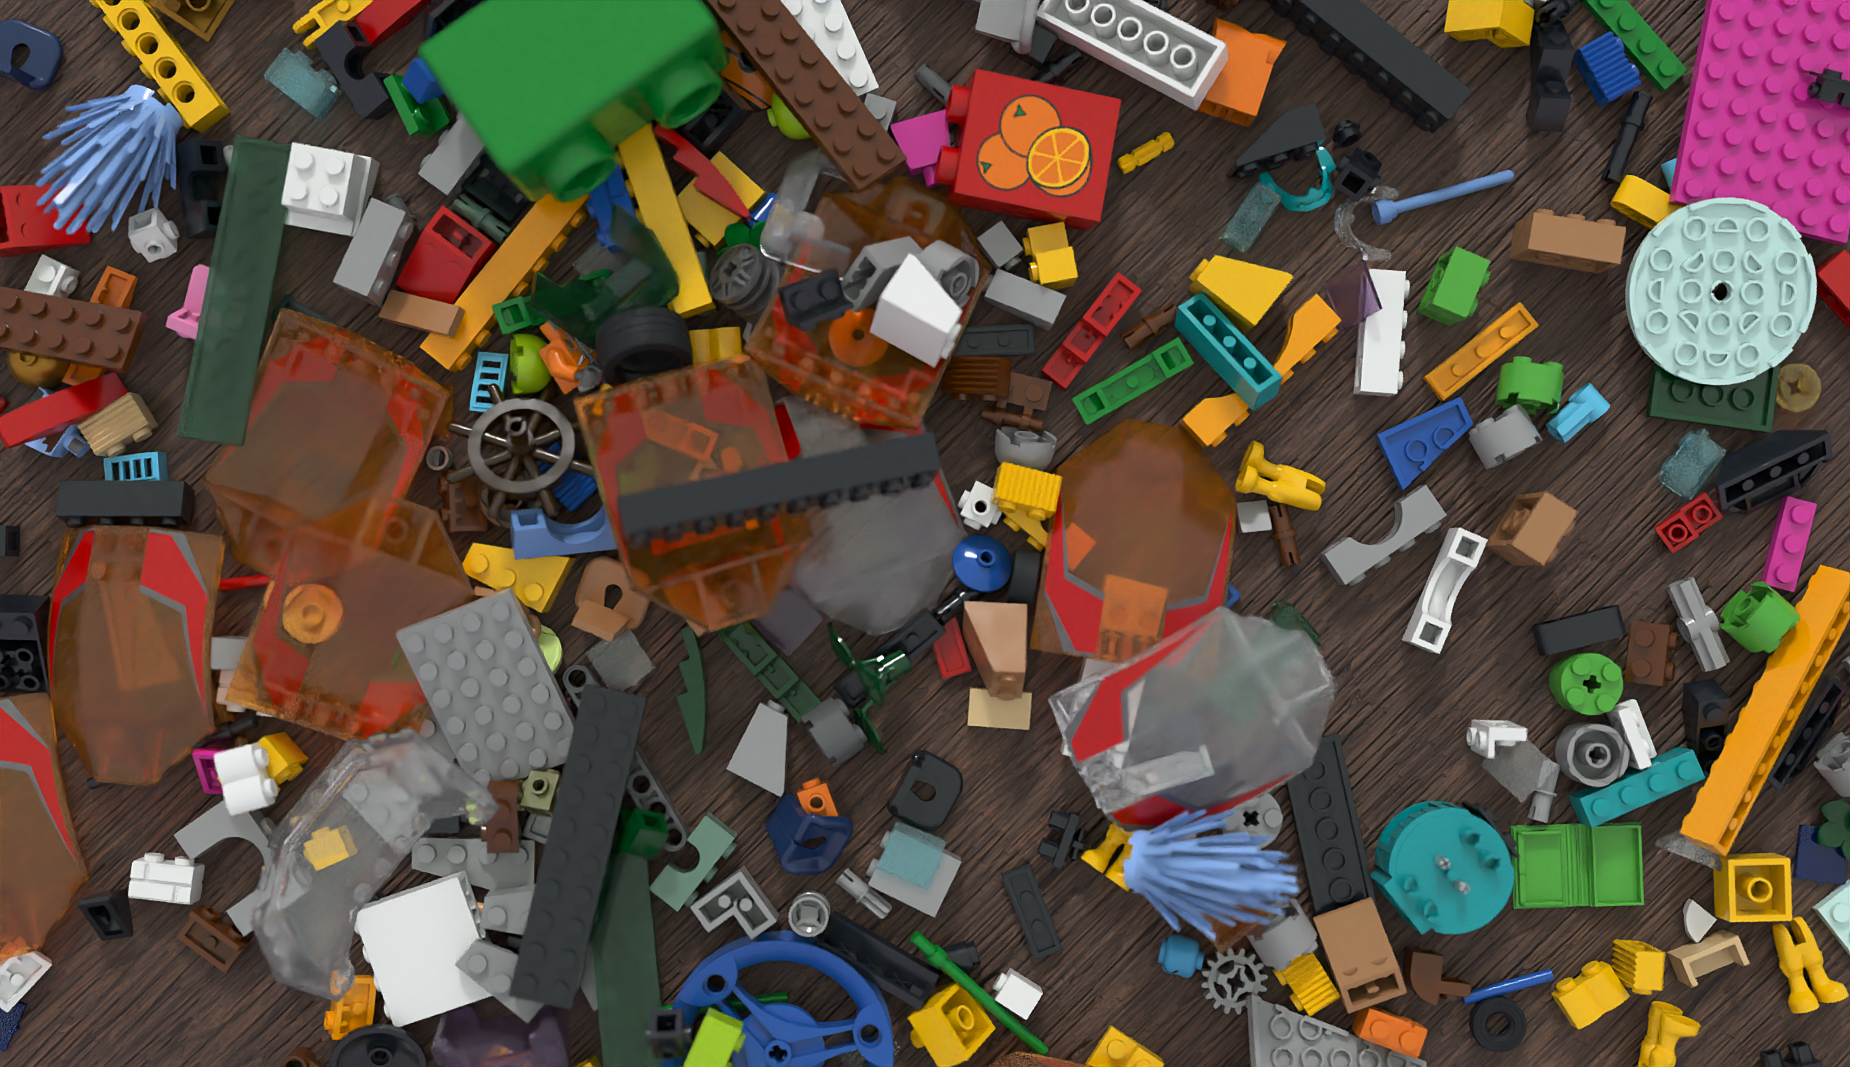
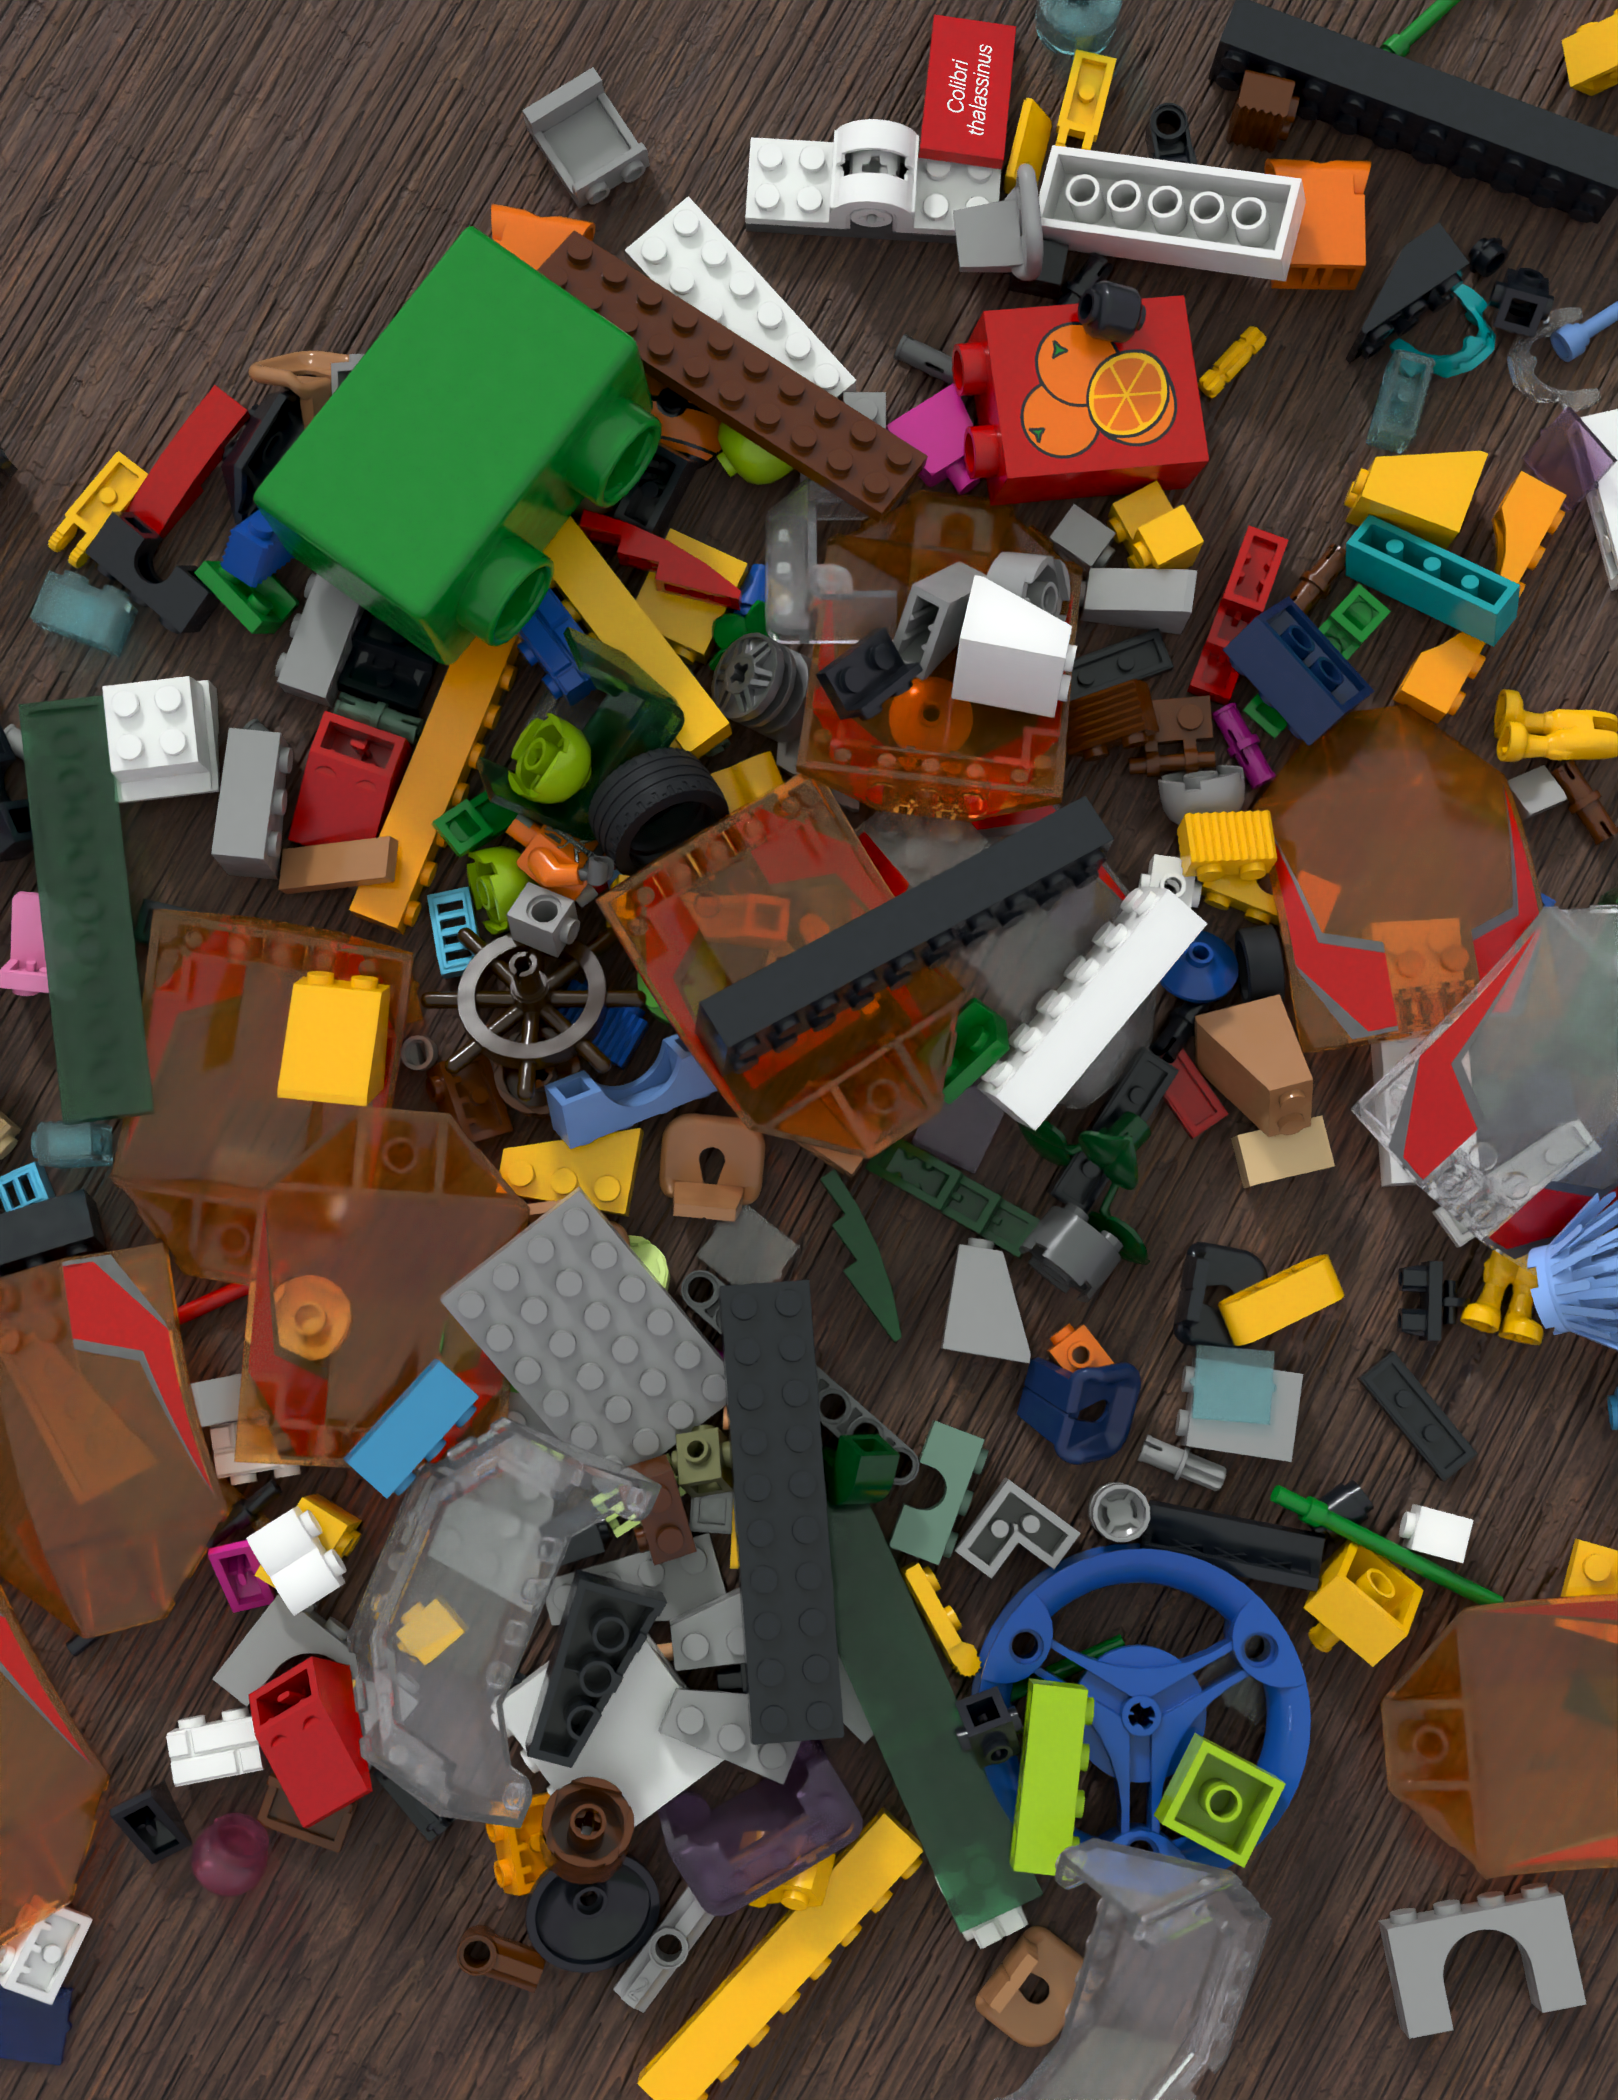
camera: 15 degrees left, 5 degrees down
(152, 953) = (230, 1855): none -> clear pink piece
(184, 450) = (72, 1145): none -> clear light blue brick
(223, 895) = (312, 1737): none -> red slope
(350, 714) = (412, 1429): none -> dark azure brick
(376, 437) = (335, 1040): none -> yellow slope
(378, 998) = (581, 1856): none -> reddish brown brick
(428, 895) = (593, 1647): none -> black wedge
(542, 386) = (540, 905): none -> light grey brick
(583, 290) = (550, 761): none -> lime cylinder
(669, 947) = (941, 1621): none -> yellow hinge
(811, 575) = (979, 1045): none -> green bracket
(893, 573) = (1090, 1004): none -> white brick
(964, 807) = (1281, 1300): none -> yellow beam
(1063, 97) = (1111, 311): none -> black head
(1065, 422) = (1243, 745): none -> magenta pin
(1116, 384) = (1297, 670): none -> dark blue slope

